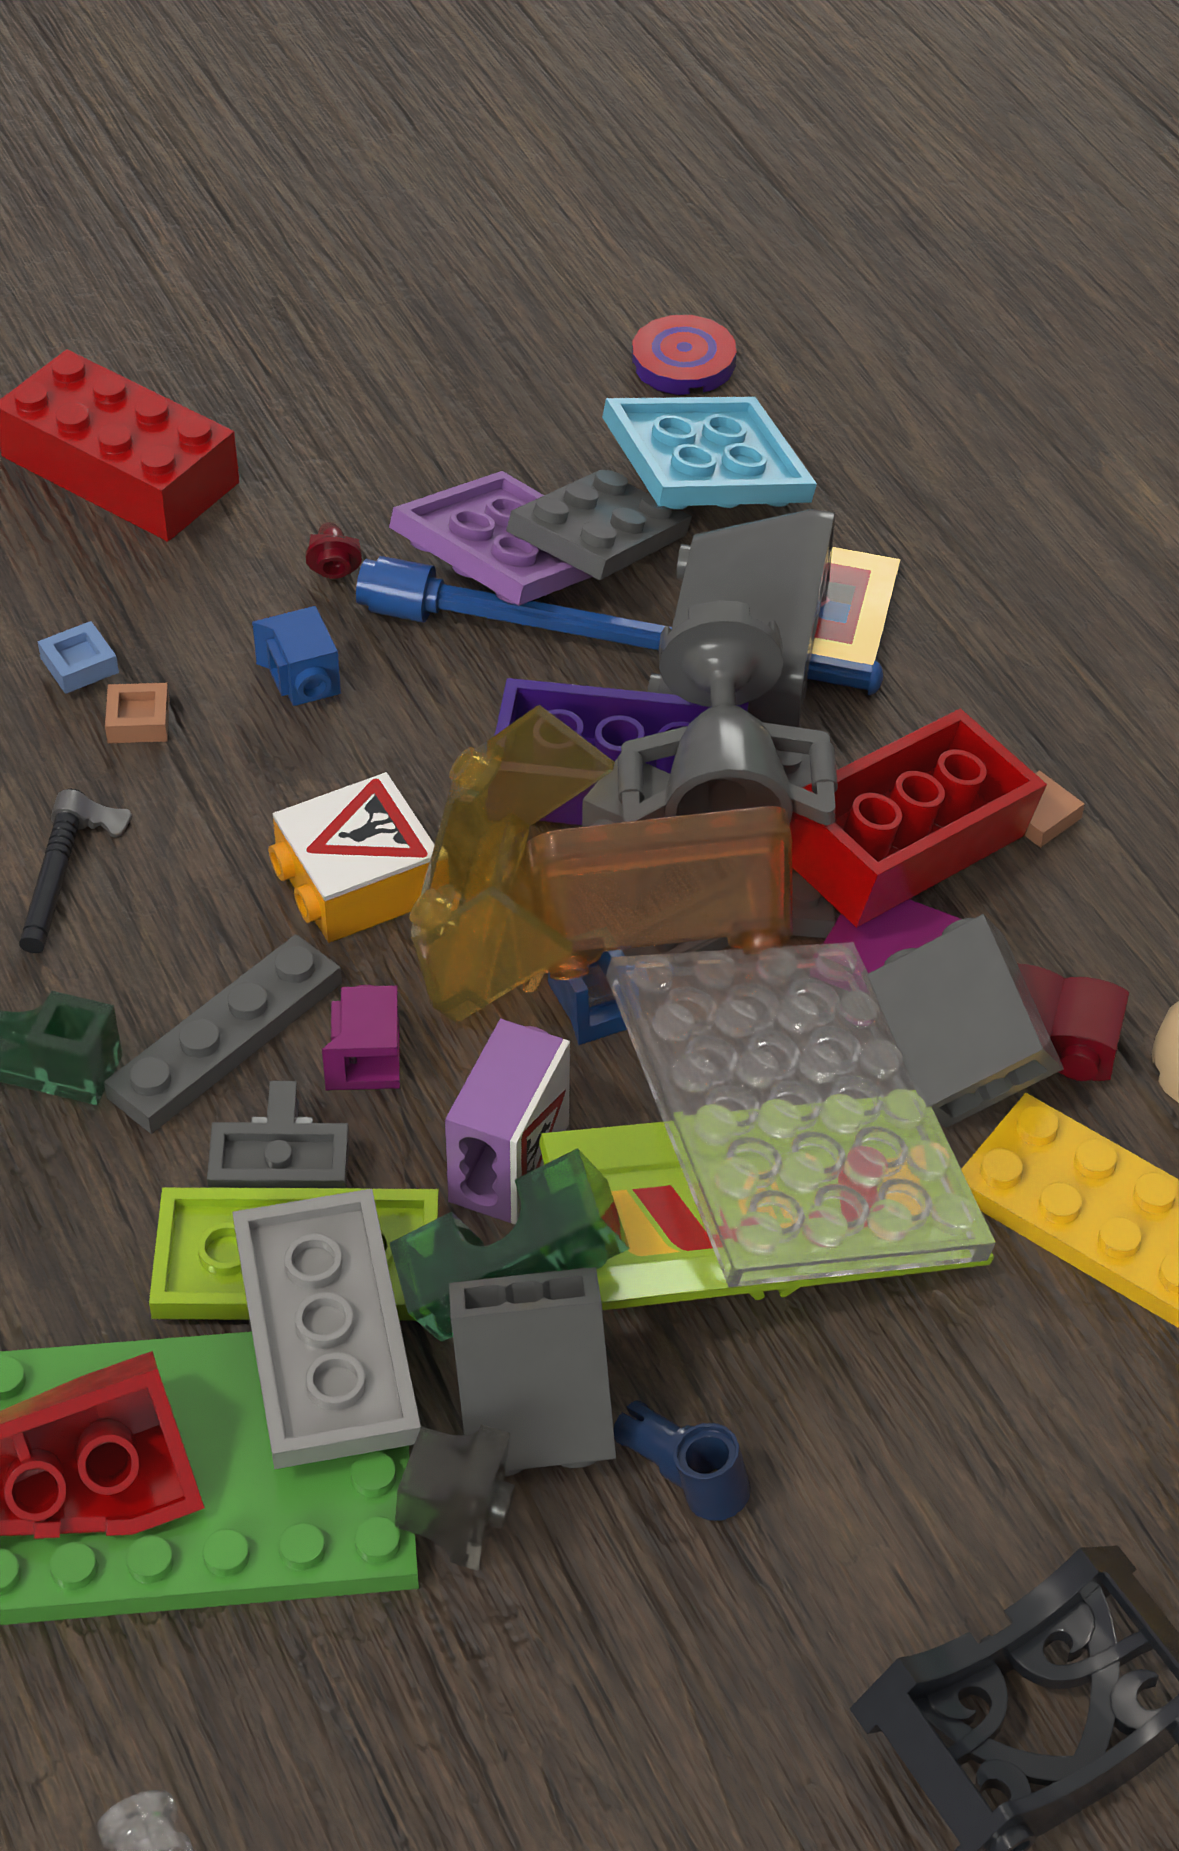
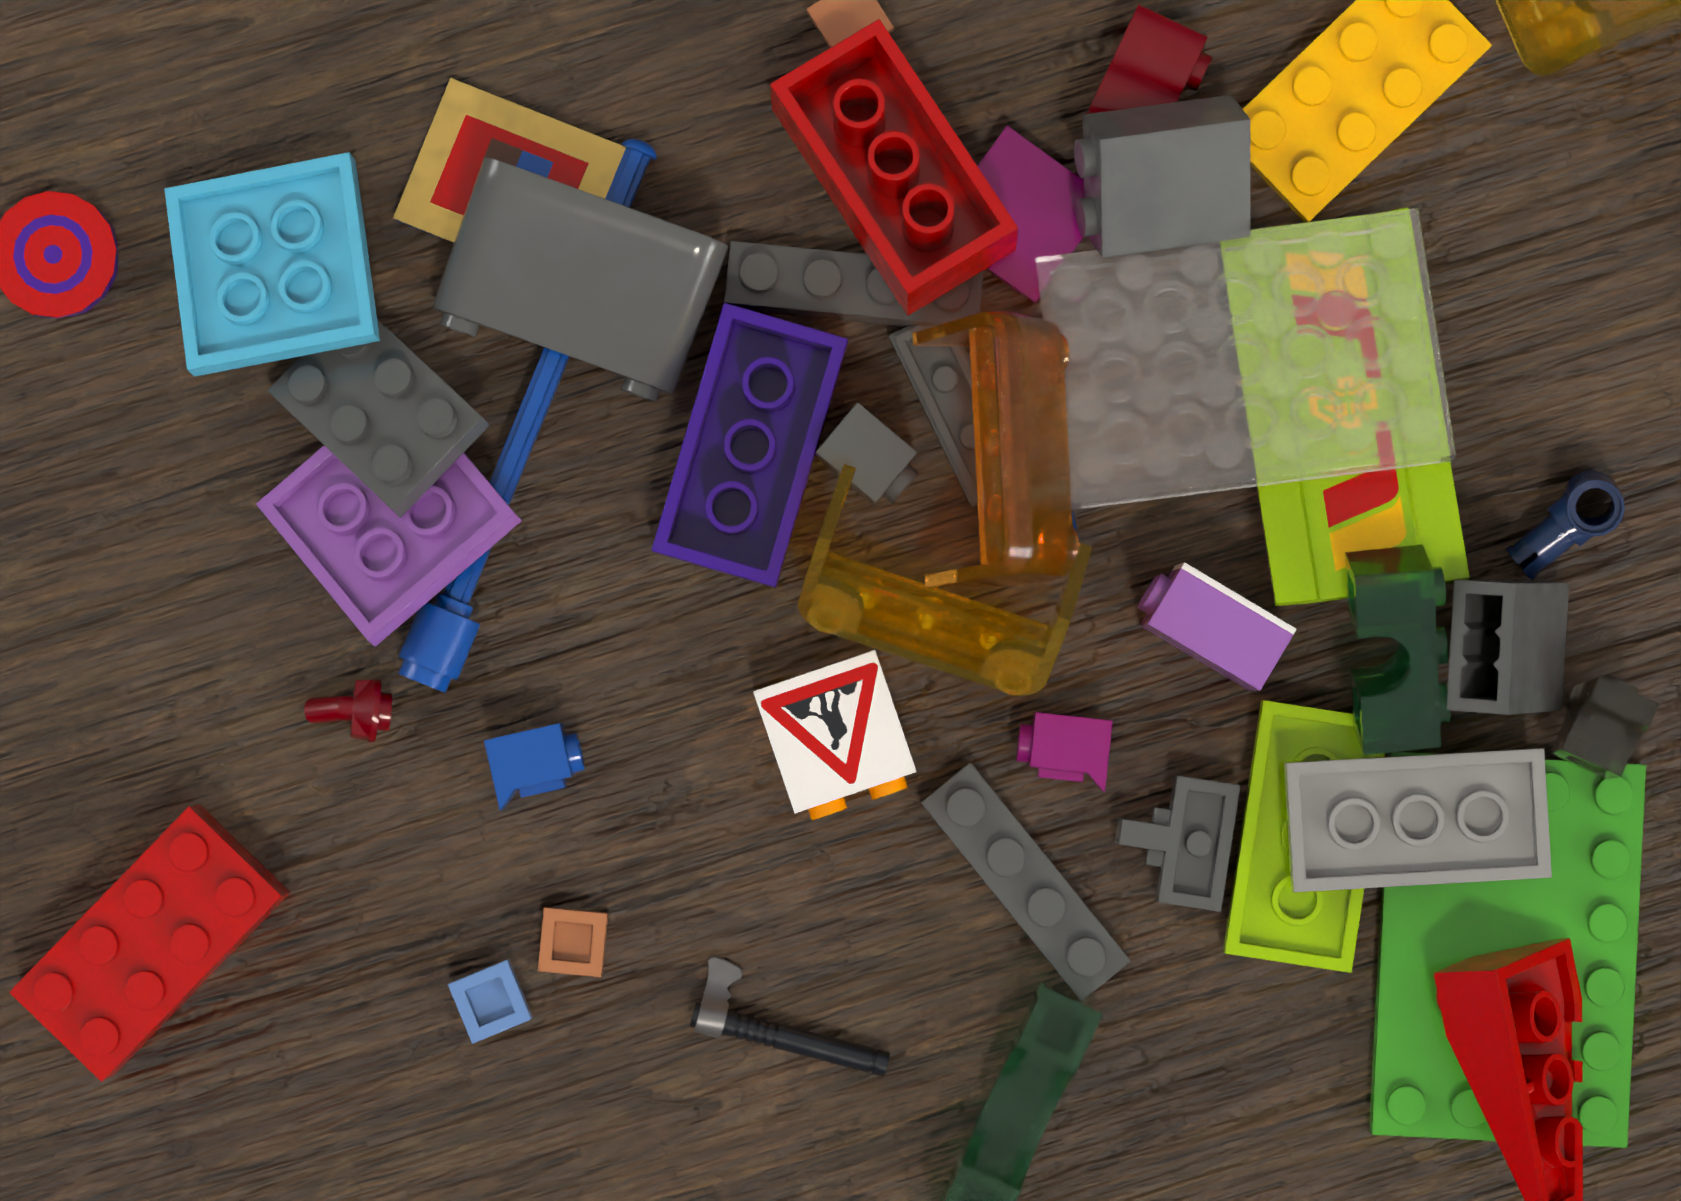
camera: 80 degrees left, 40 degrees up
(725, 753) = (859, 349): dark grey piece -> none

